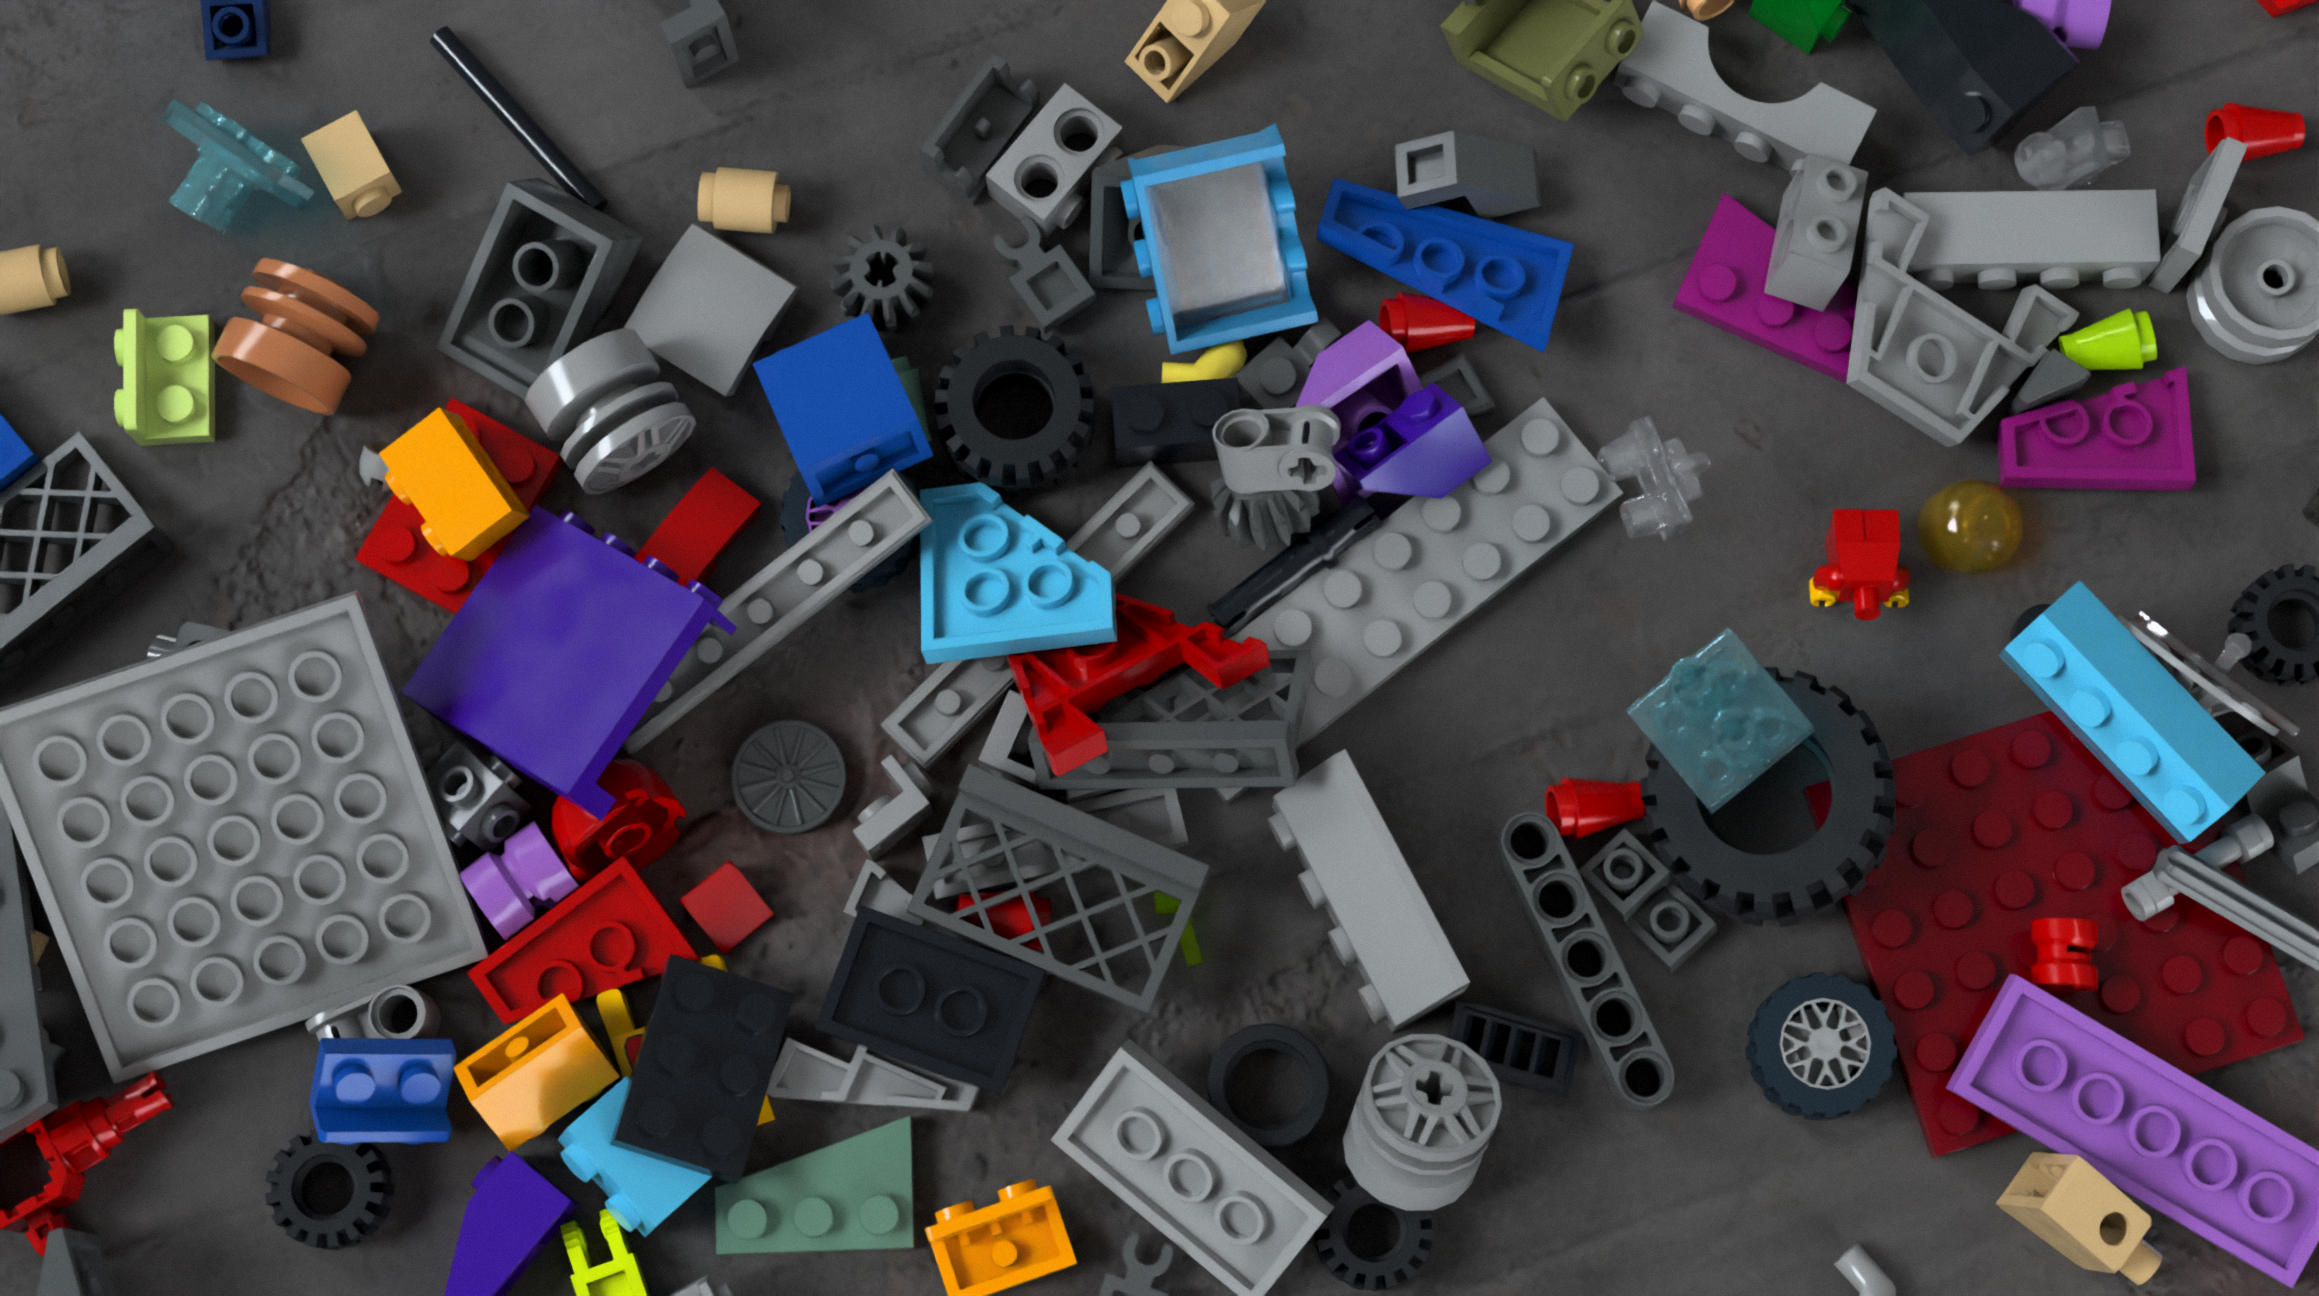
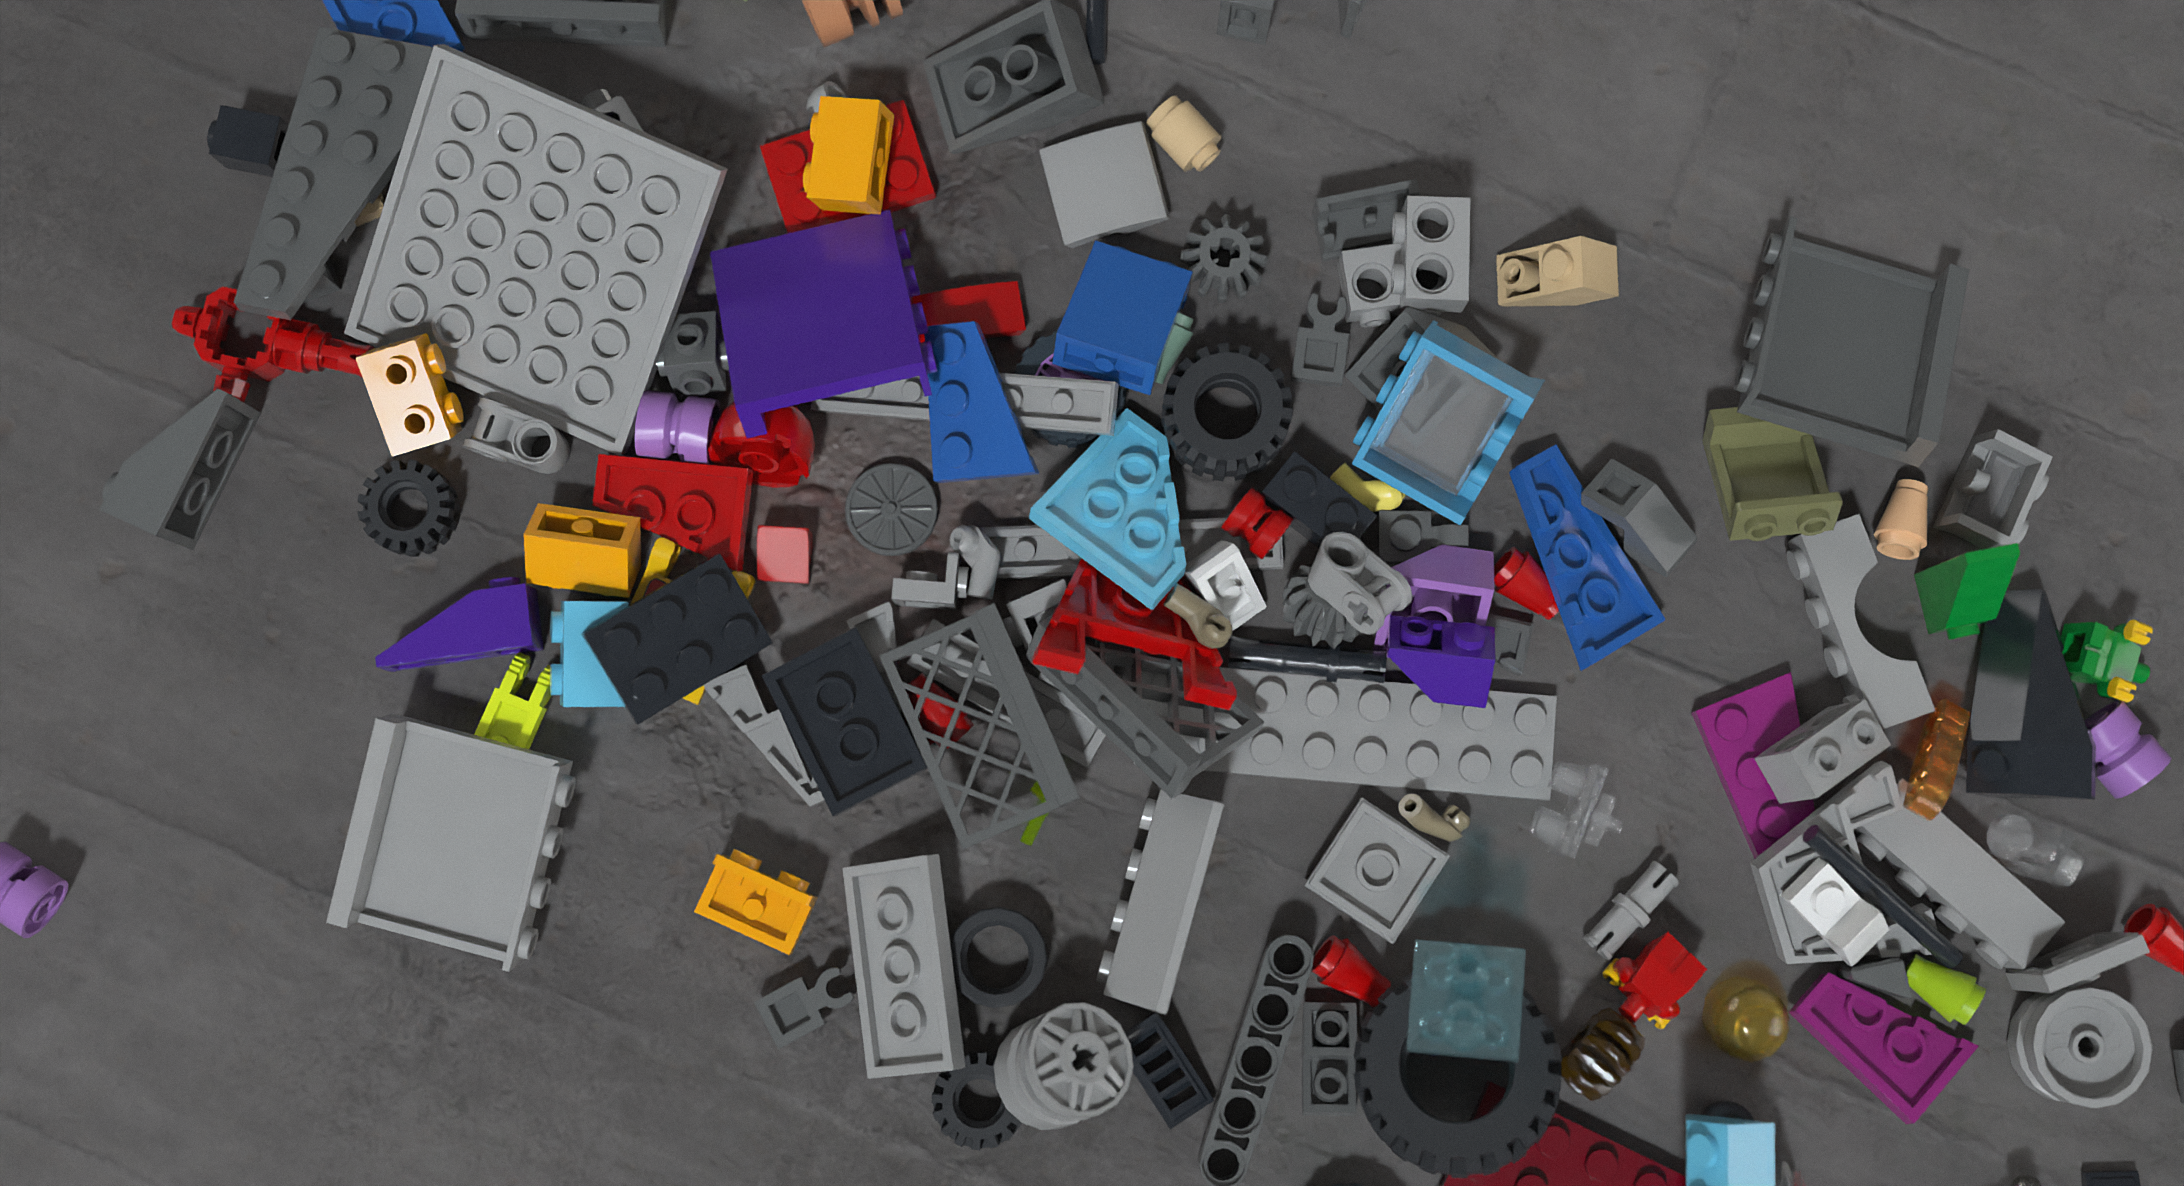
camera: 45 degrees right, 5 degrees up
(235, 1077) = (411, 394): none -> brick
(382, 1090) = (485, 480): blue bracket -> none
(610, 411) = (984, 192): light grey wheel -> none
(785, 617) = (969, 412): none -> blue wing
(827, 1200) = (683, 781): sand green wing -> none
(913, 740) = (981, 556): none -> light grey arm
(1084, 95) = (1444, 255): none -> light grey brick
(1122, 485) = (1248, 515): none -> red wheel
(1159, 563) = (1225, 582): none -> white slope
(1174, 607) = (1204, 619): none -> dark tan arm
(1531, 695) = (1376, 870): none -> light grey plate
(1532, 610) = (1428, 821): none -> dark tan arm
(1784, 524) = (1631, 910): none -> light grey pin
(1878, 667) = (1601, 1054): none -> dark brown gear
(1918, 150) = (1936, 760): none -> clear orange beam
(1959, 357) = (1836, 911): none -> white slope
(1984, 308) = (1882, 896): none -> black bar

